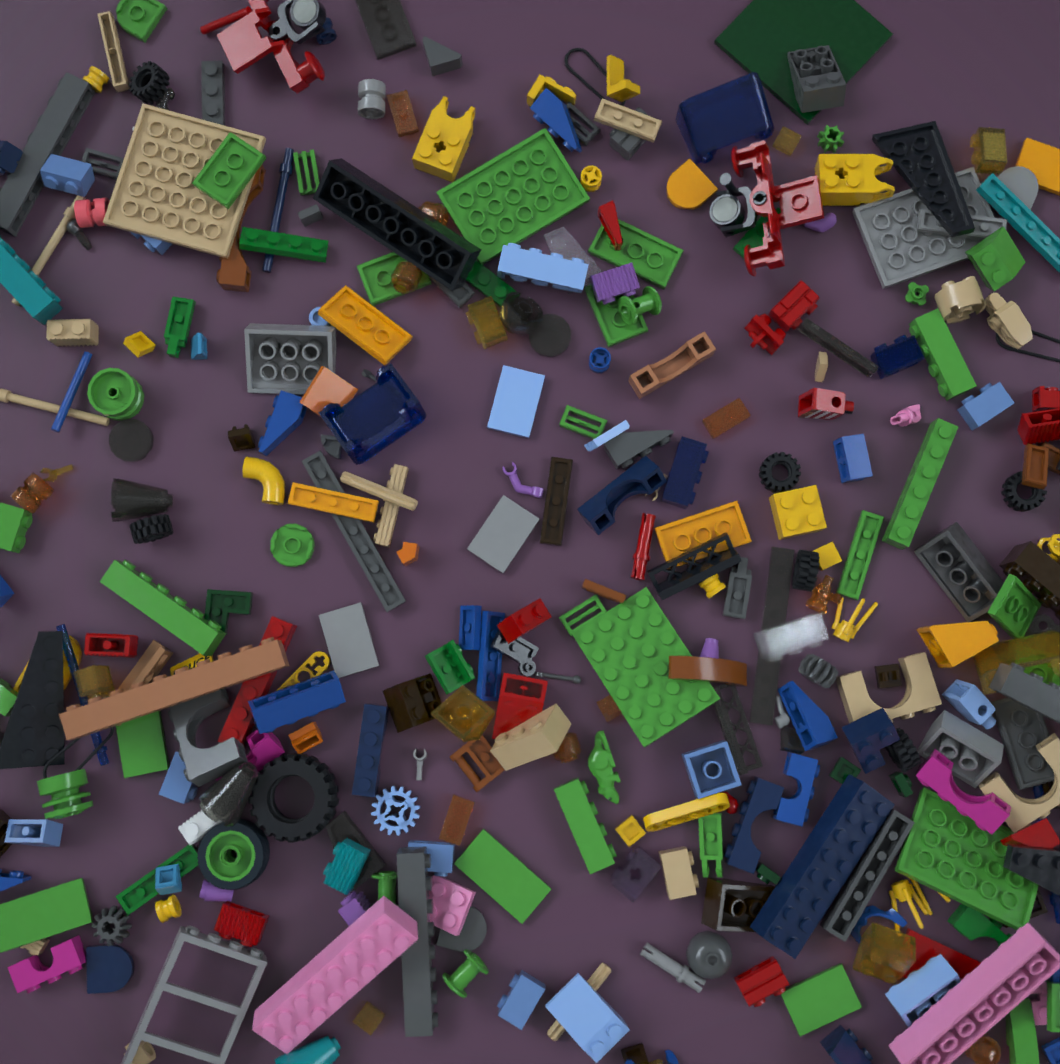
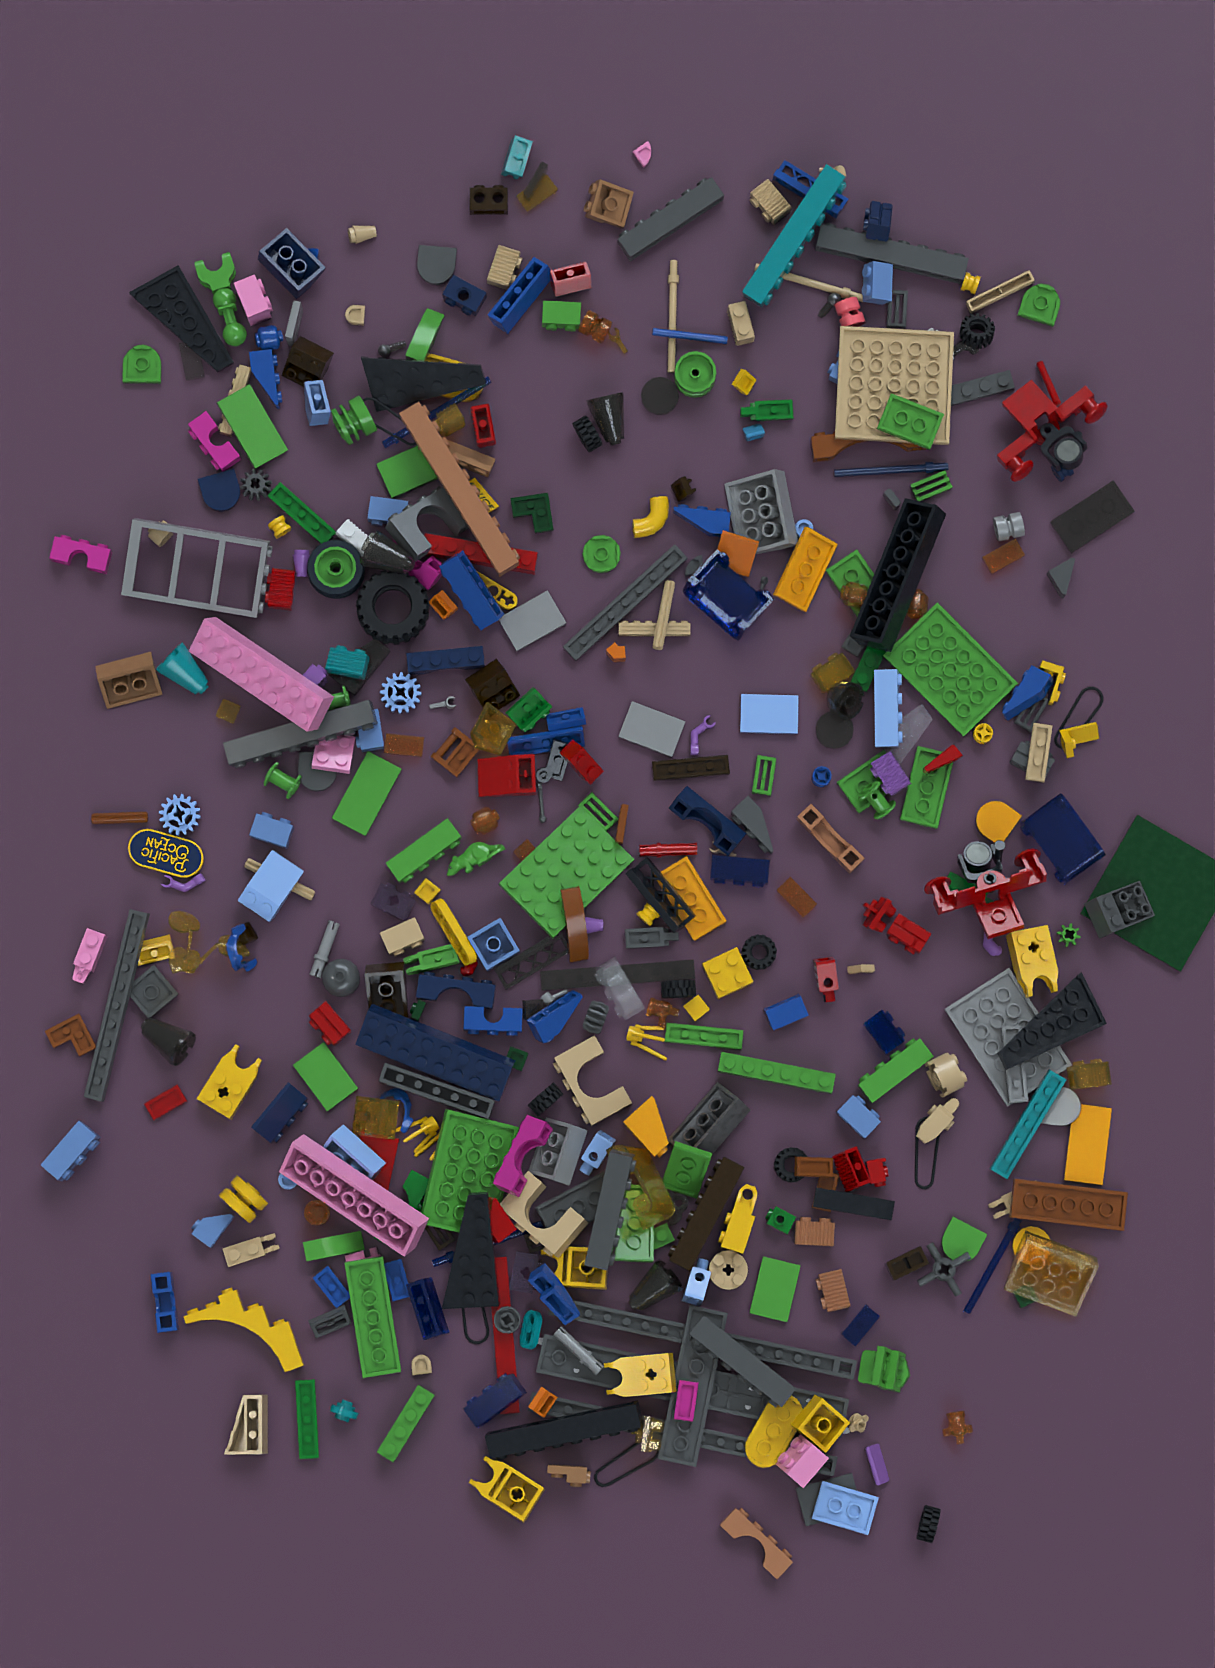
camera: 70 degrees right, 0 degrees up
(163, 607) = (524, 459): bright green brick -> none
(168, 879) = (303, 521): dark azure slope -> none
(283, 244) = (859, 483): green plate -> none
(333, 502) = (645, 579): light orange tile -> none
(445, 135) = (991, 602): yellow brick -> none
(532, 738) = (485, 789): tan wedge -> none
(607, 436) = (755, 796): light blue tile -> none
(787, 141) = (1059, 898): clear yellow tile -> none
(838, 348) = (880, 979): clear smoke tile -> none
(869, 736) = (548, 1066): dark blue brick -> none
(888, 676) = (605, 1080): dark brown tile -> none
(901, 783) = (517, 1108): dark green plate -> none
(907, 416) = (835, 1053): bright pink piece -> none
(912, 298) = (945, 1034): bright green plate -> none
(996, 259) = (989, 1098): bright green slope -> none

